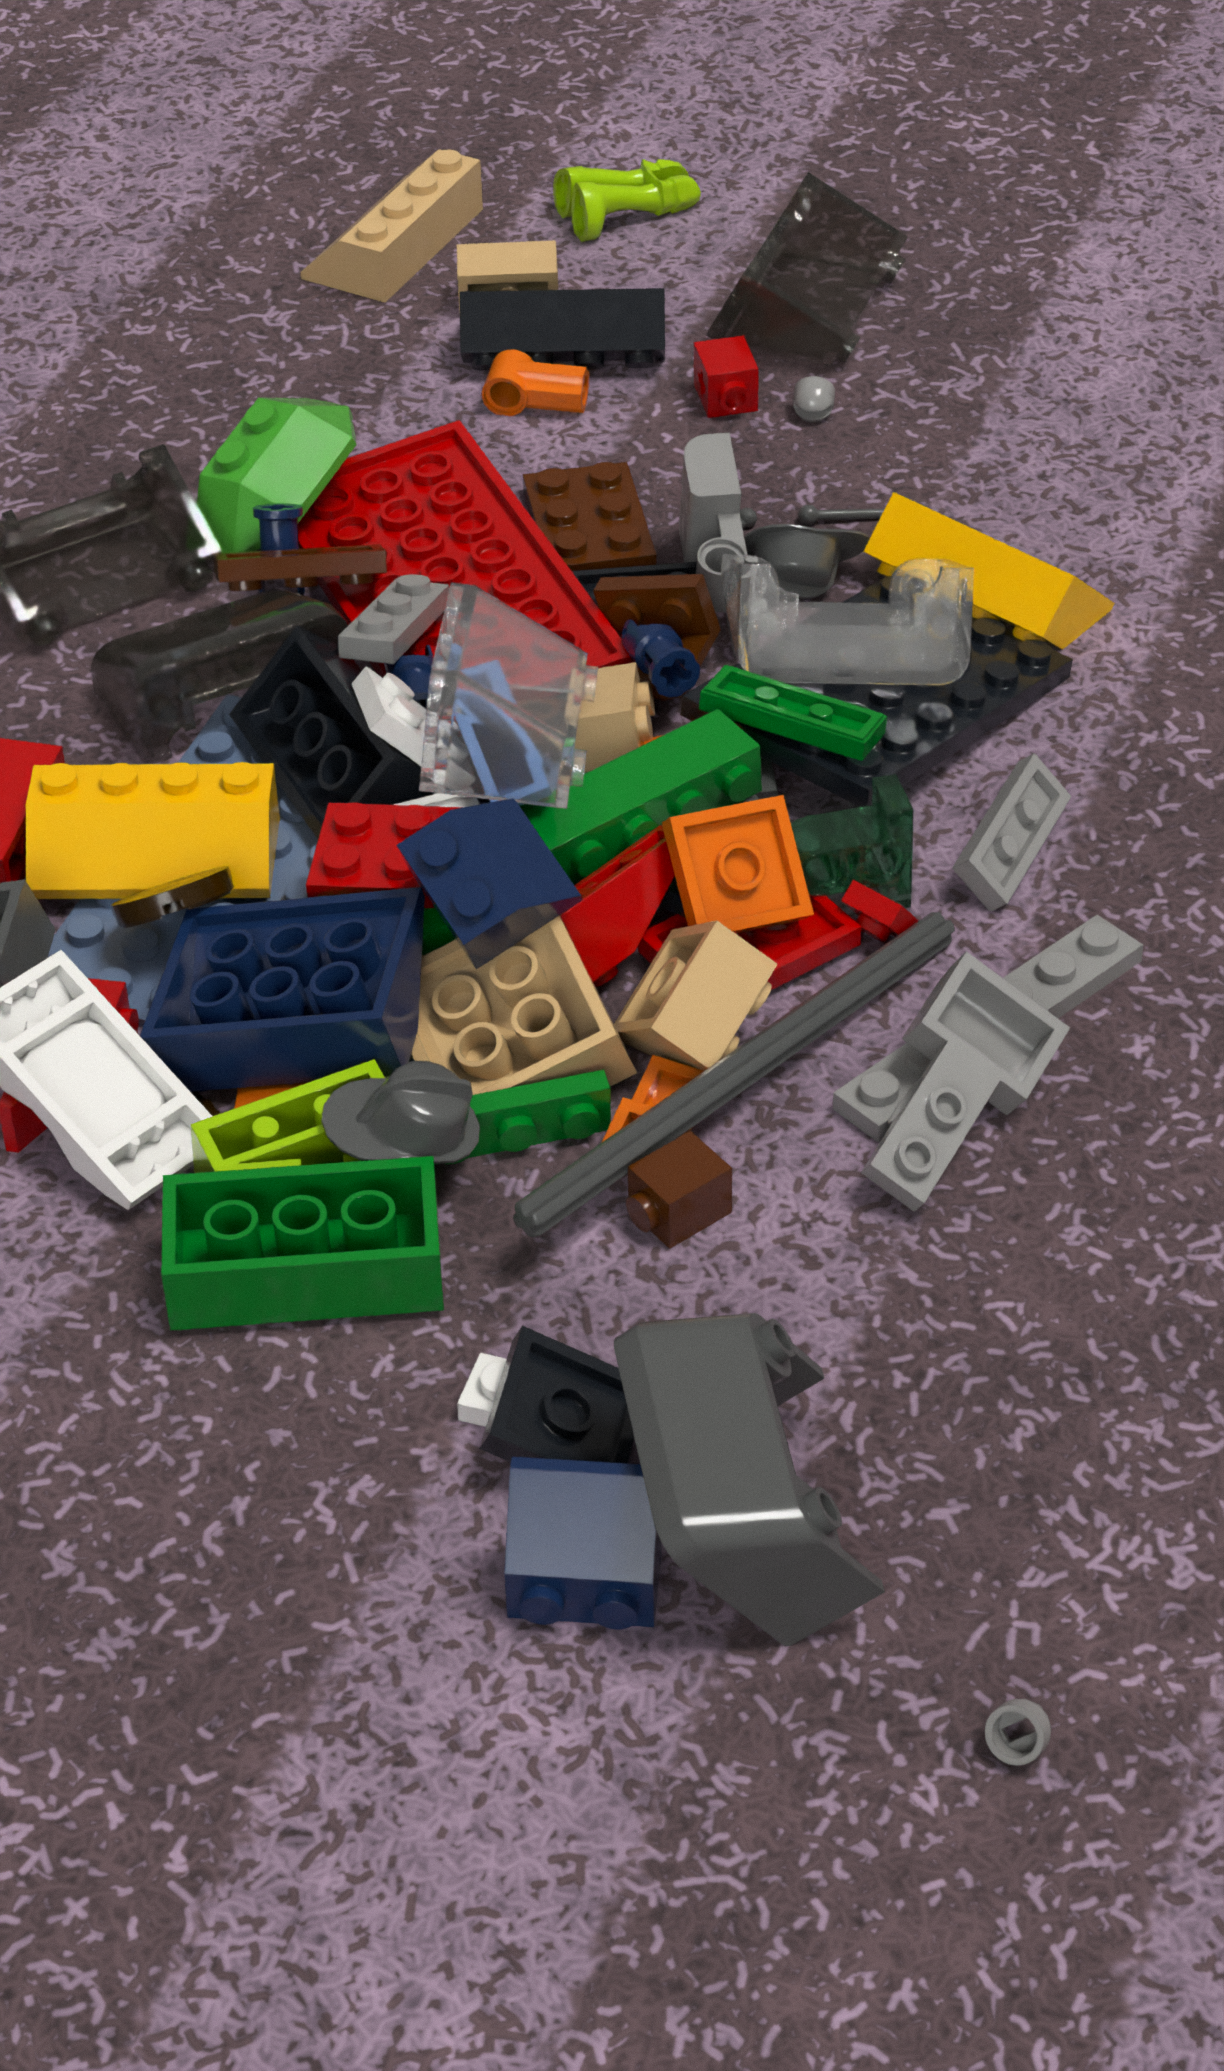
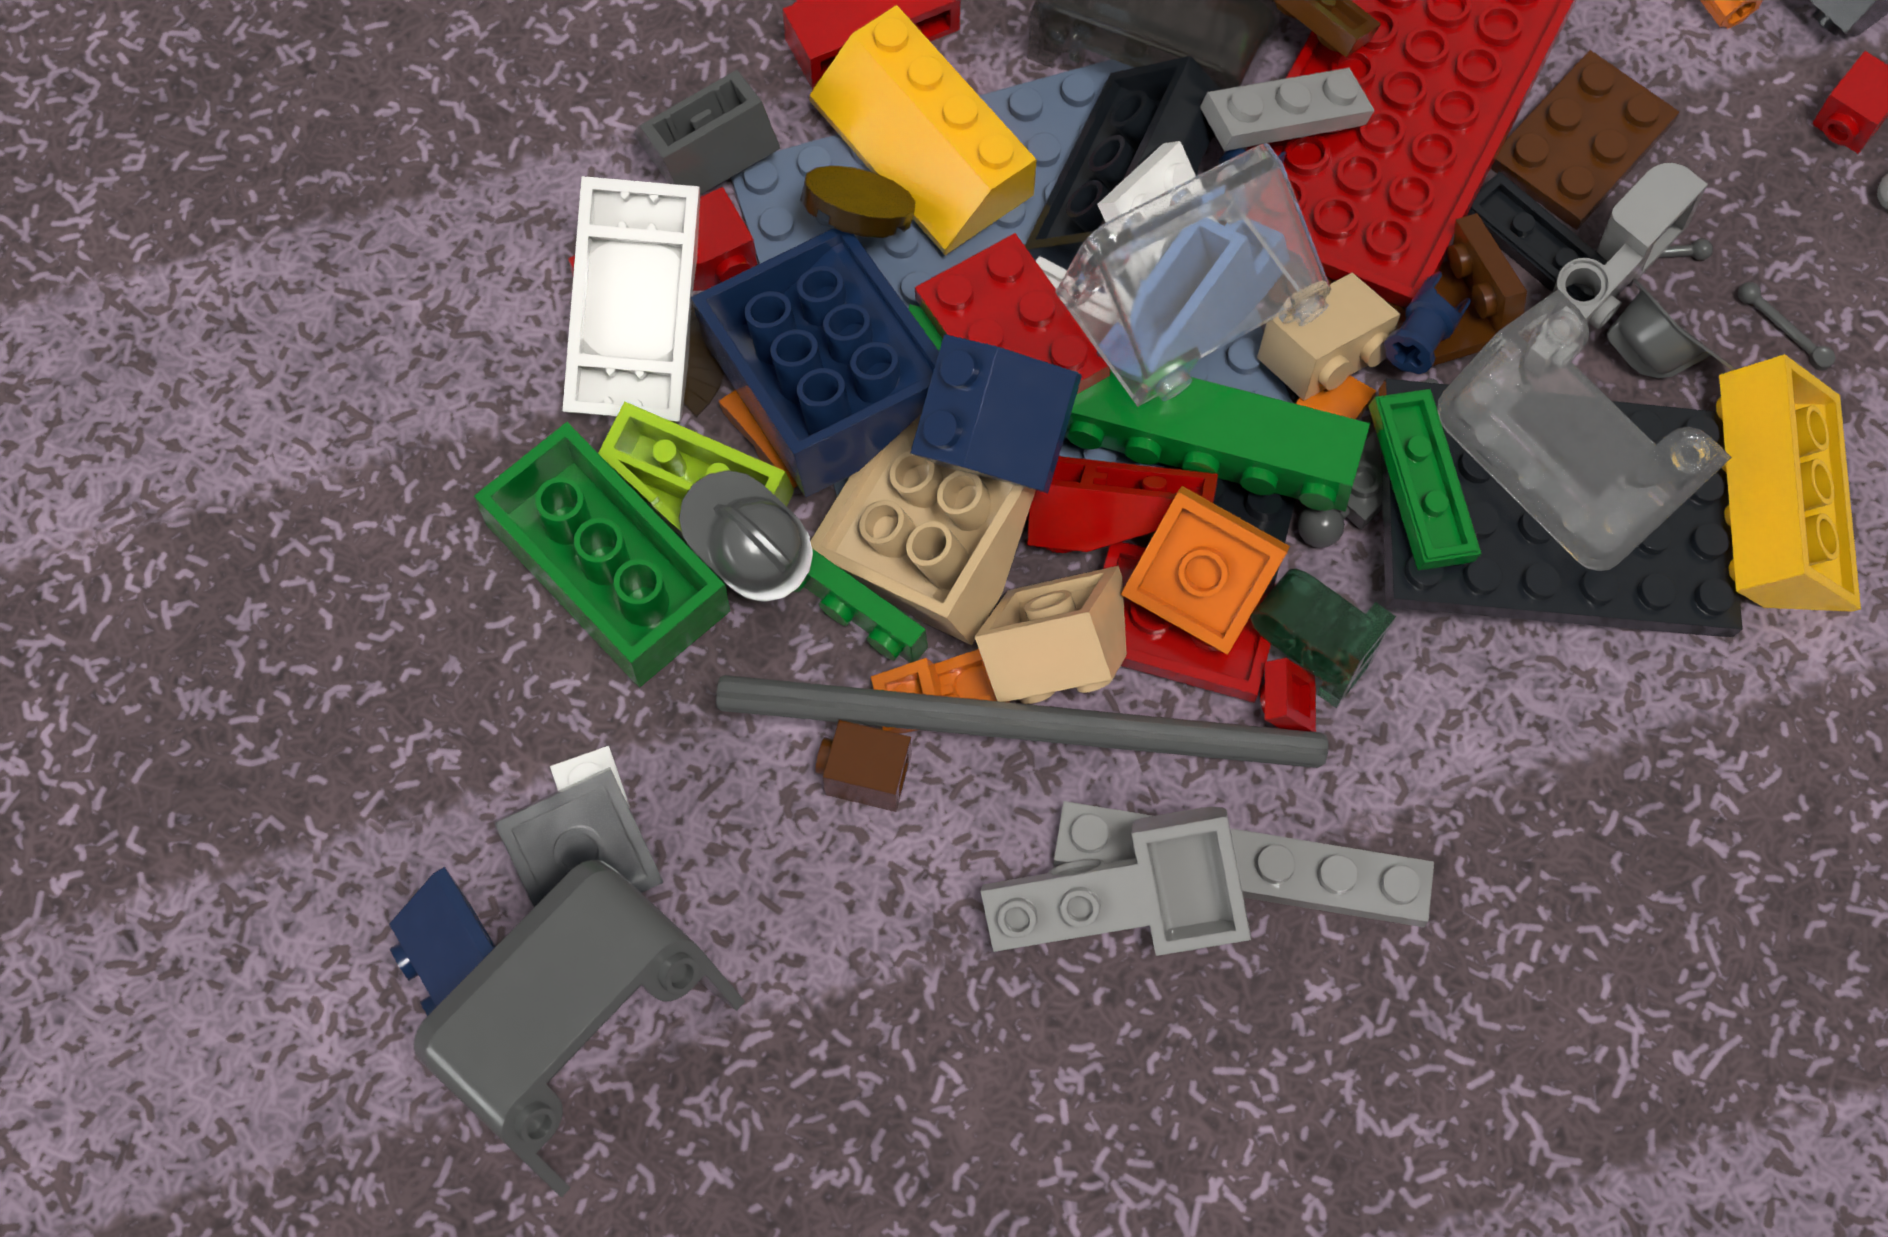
camera: 50 degrees right, 25 degrees up
(1011, 832) = (1474, 730): light grey plate -> none

